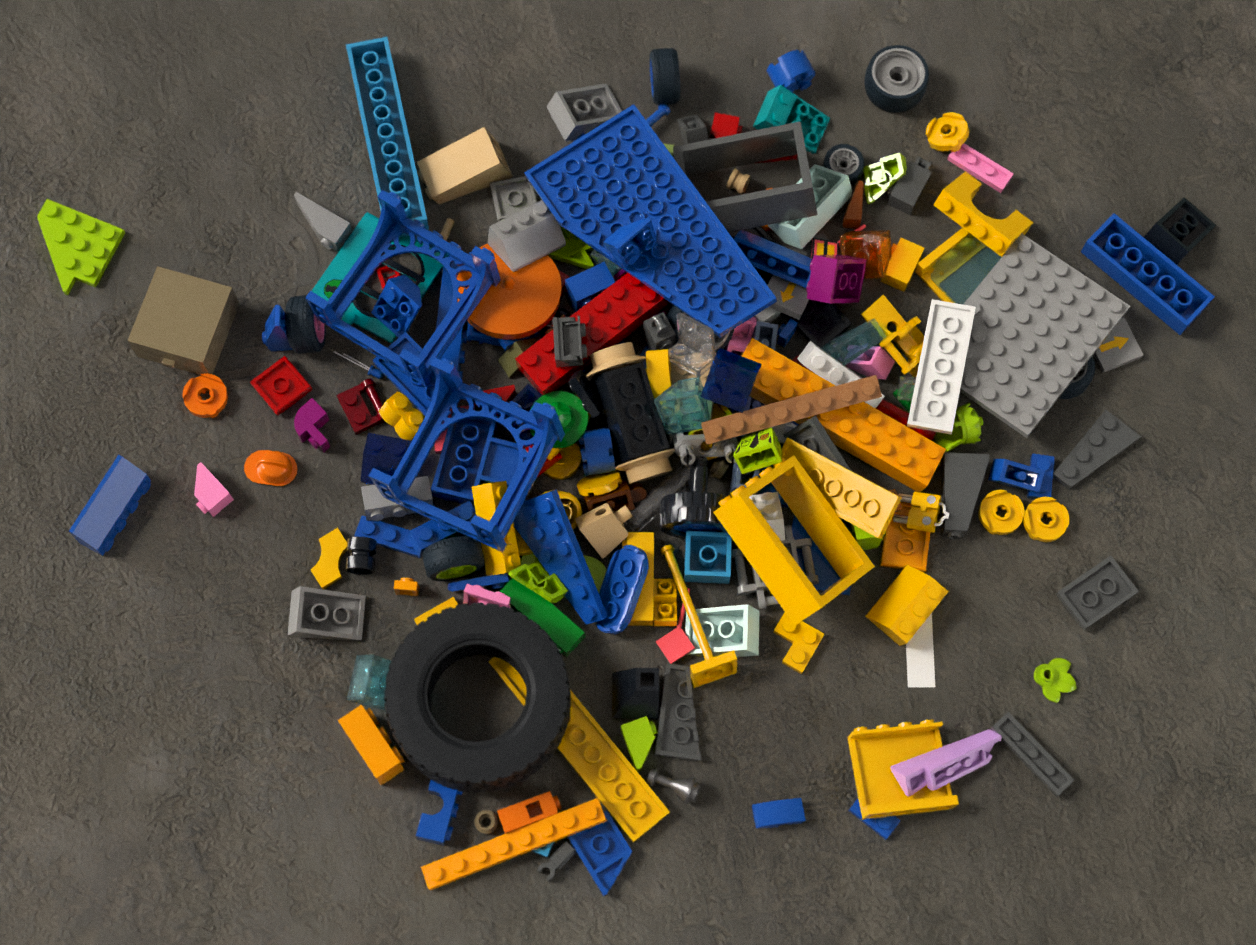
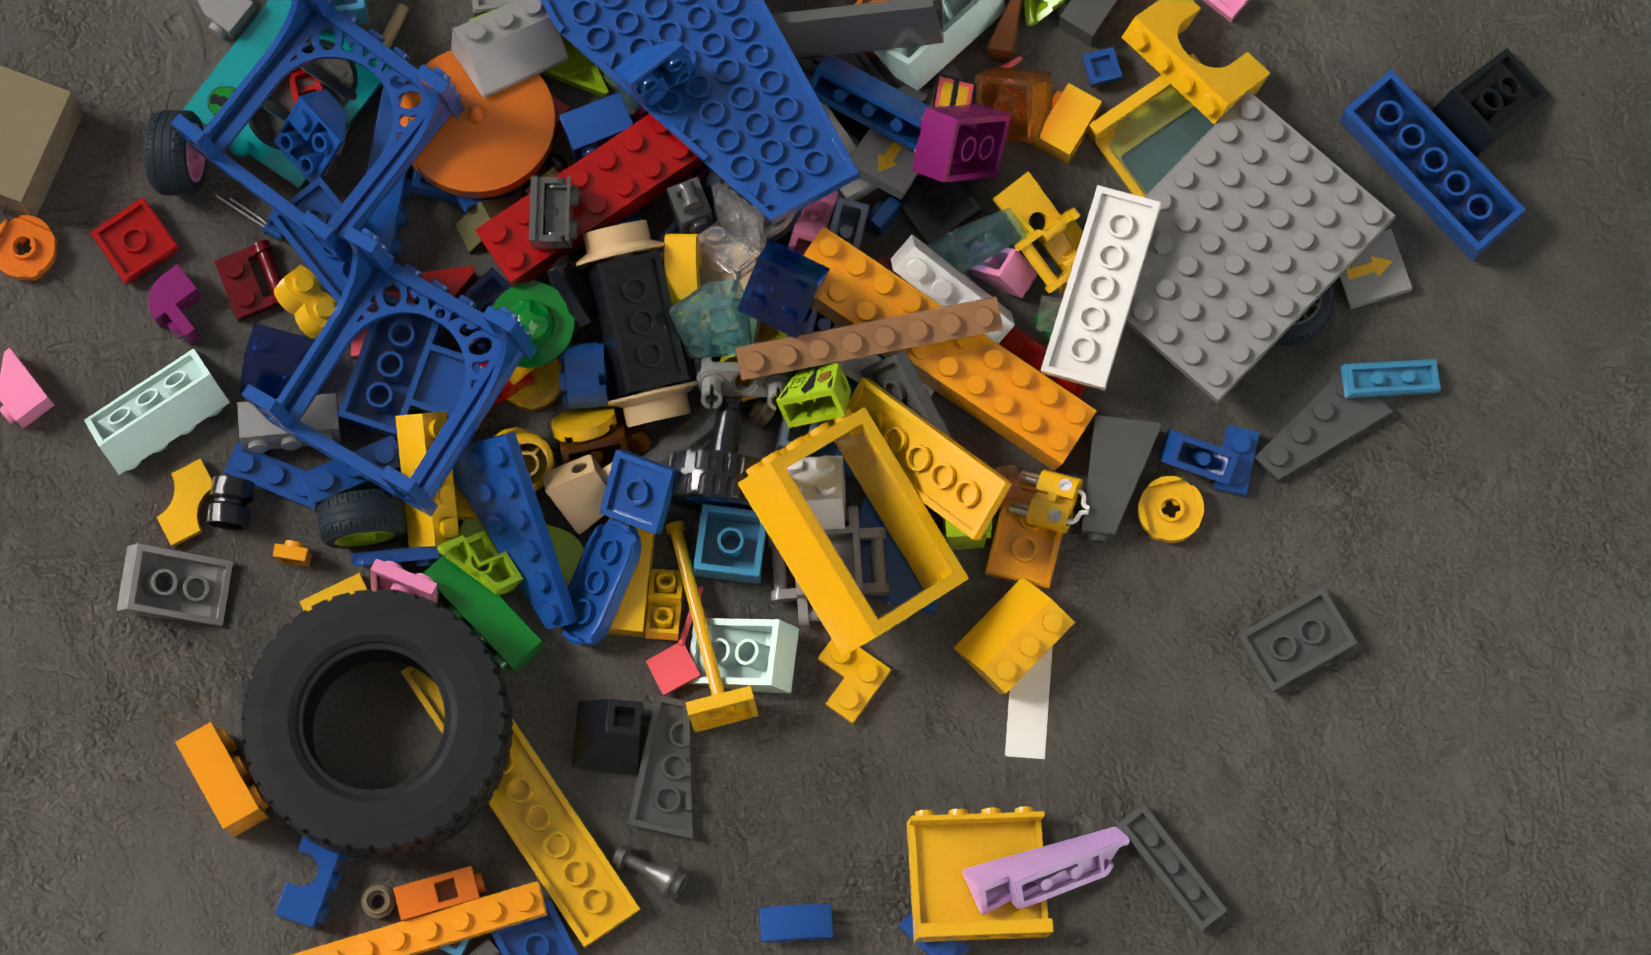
camera: 10 degrees right, 5 degrees up
(270, 468) = (111, 362): orange piece -> none
(275, 331) = (130, 161): blue slope -> none
(305, 498) = (156, 412): none -> light aqua slope
(369, 681) = (225, 686): clear light blue slope -> none
(639, 740) = (606, 802): lime slope -> none
(644, 524) = (638, 491): none -> blue plate
(920, 227) = (1102, 67): none -> blue plate
(965, 429) = (1128, 381): lime hat -> none
(1038, 530) = (1248, 511): yellow plate -> none
(1057, 680) = (1224, 762): lime plate -> none
(1137, 414) = (1390, 378): none -> dark azure tile

